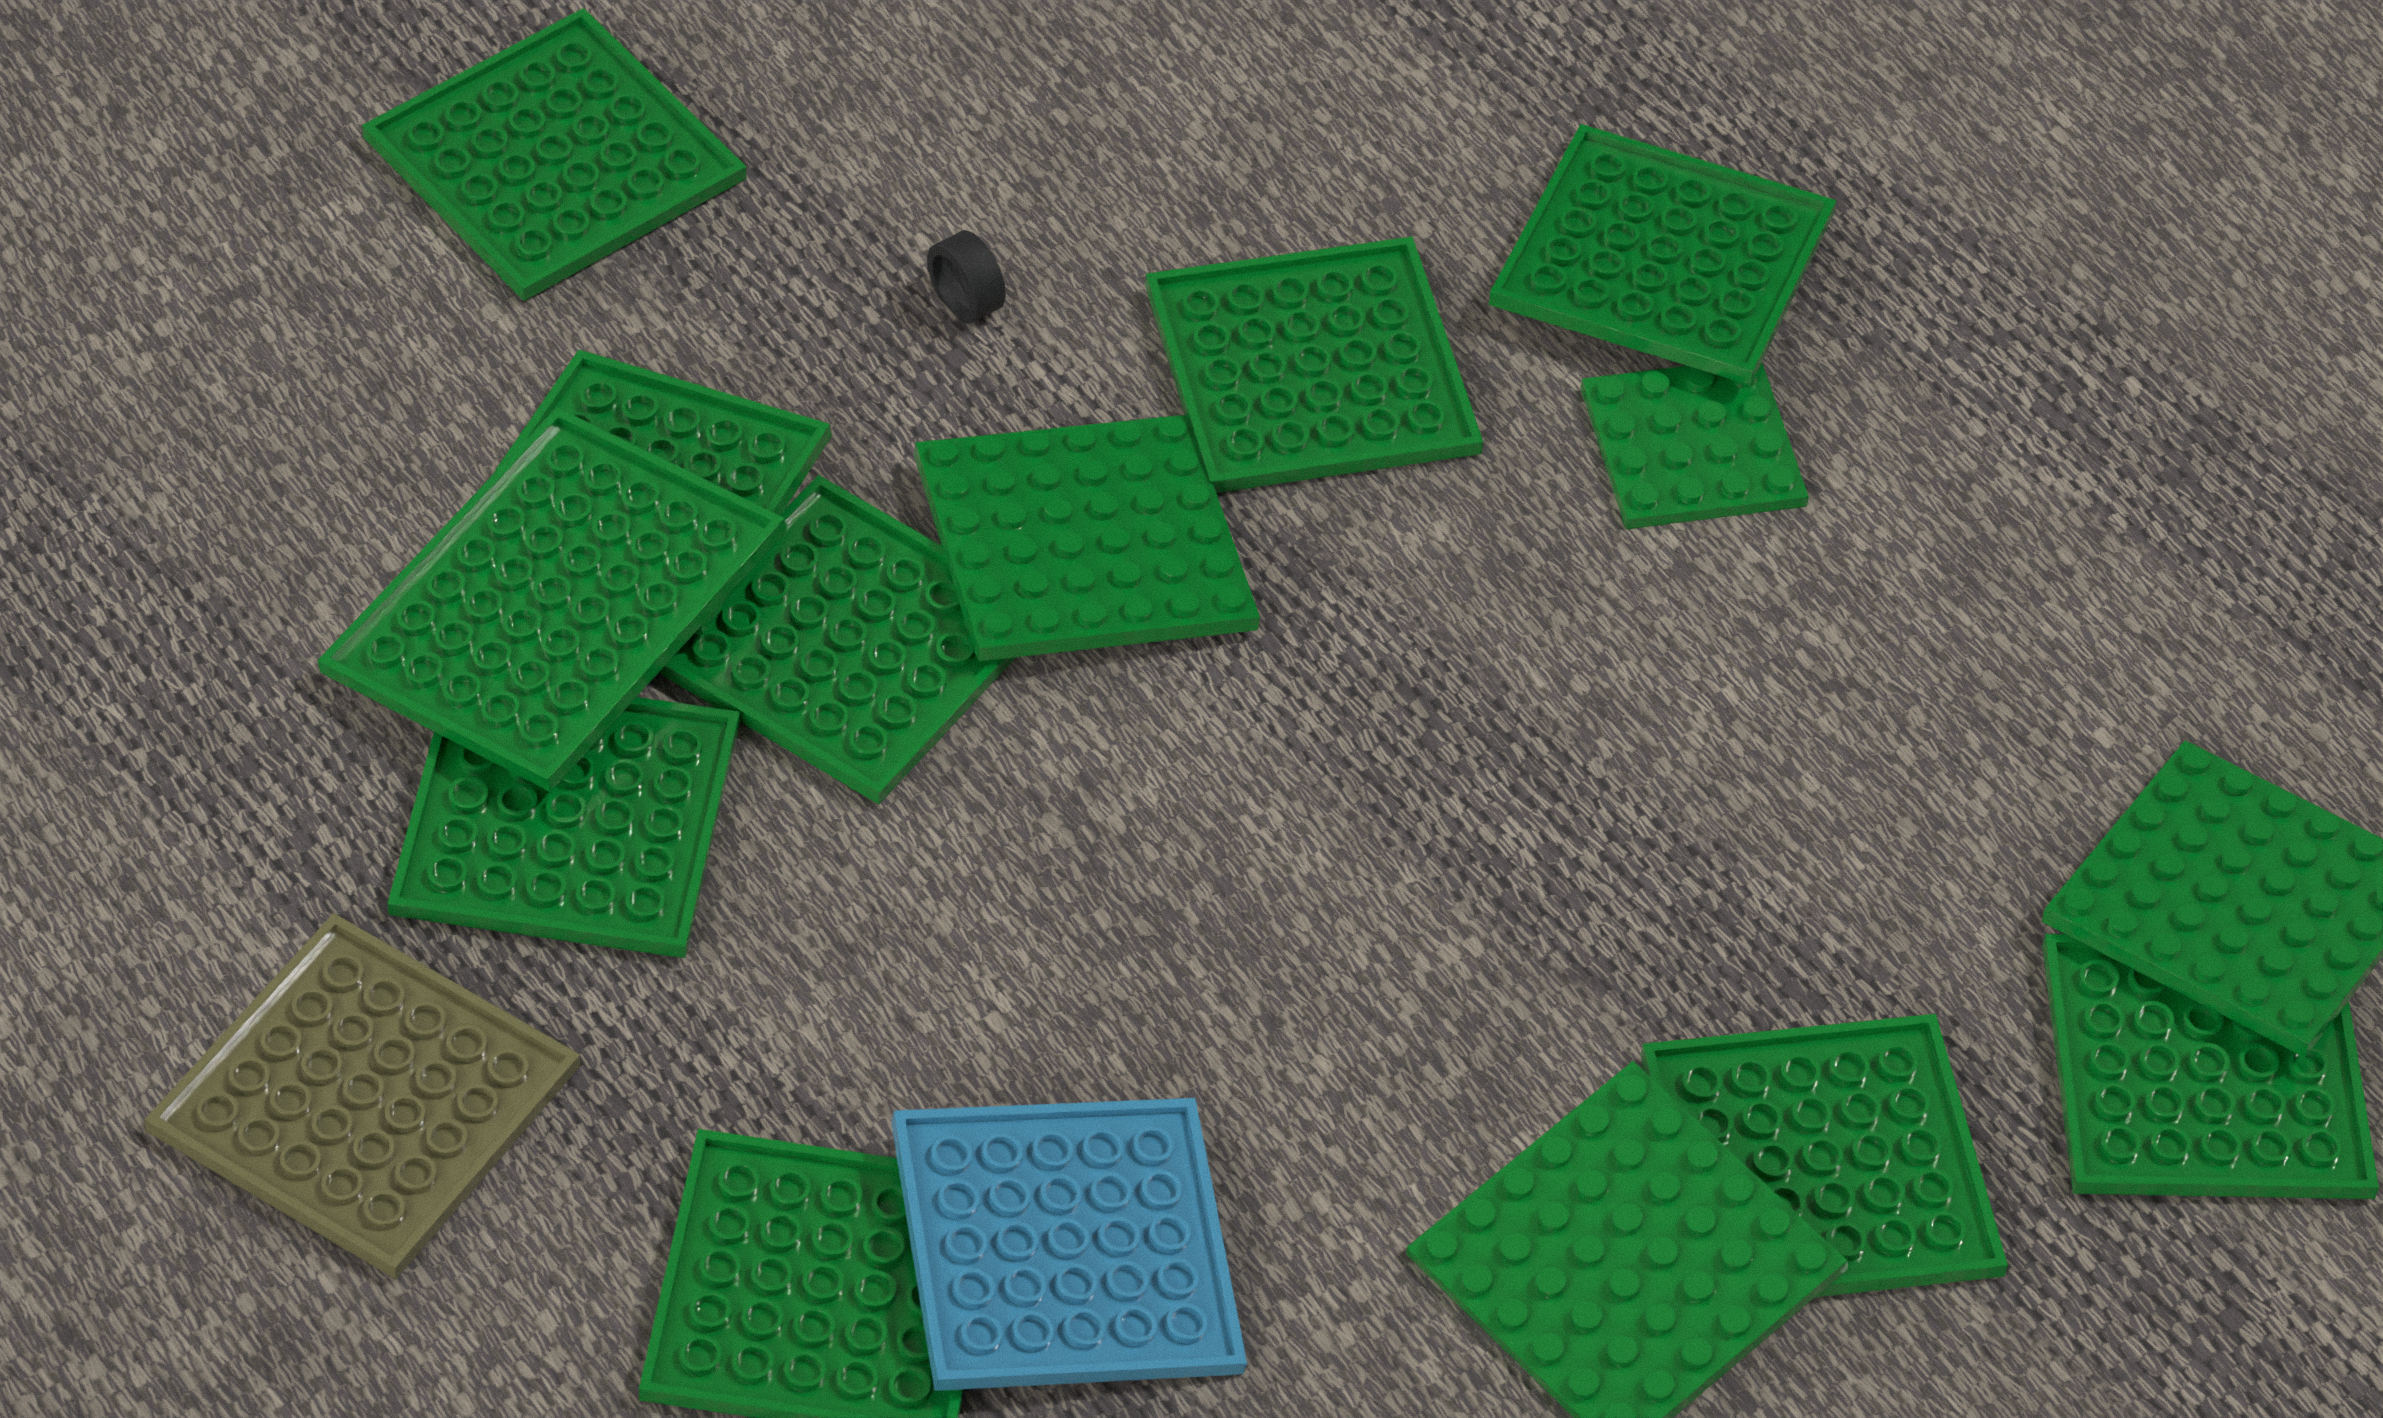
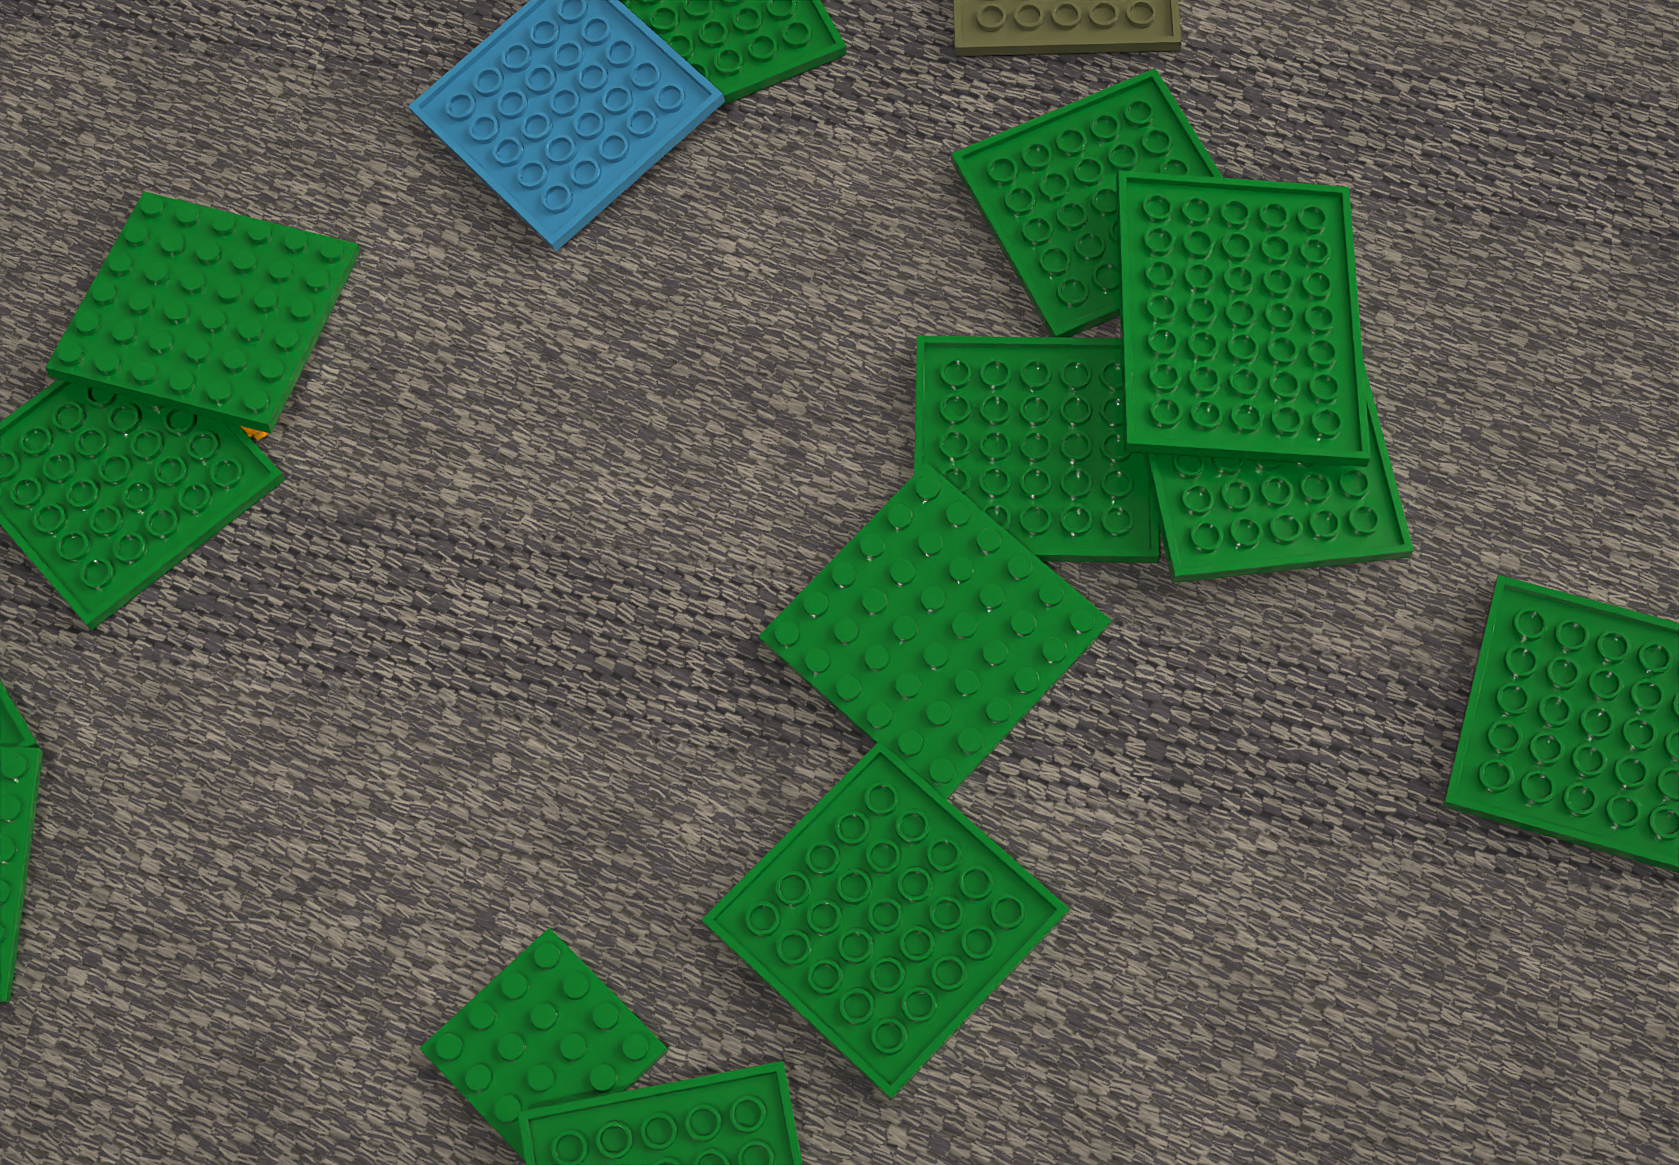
camera: 155 degrees right, 15 degrees up
(966, 276) = (1194, 795): black tyre -> none

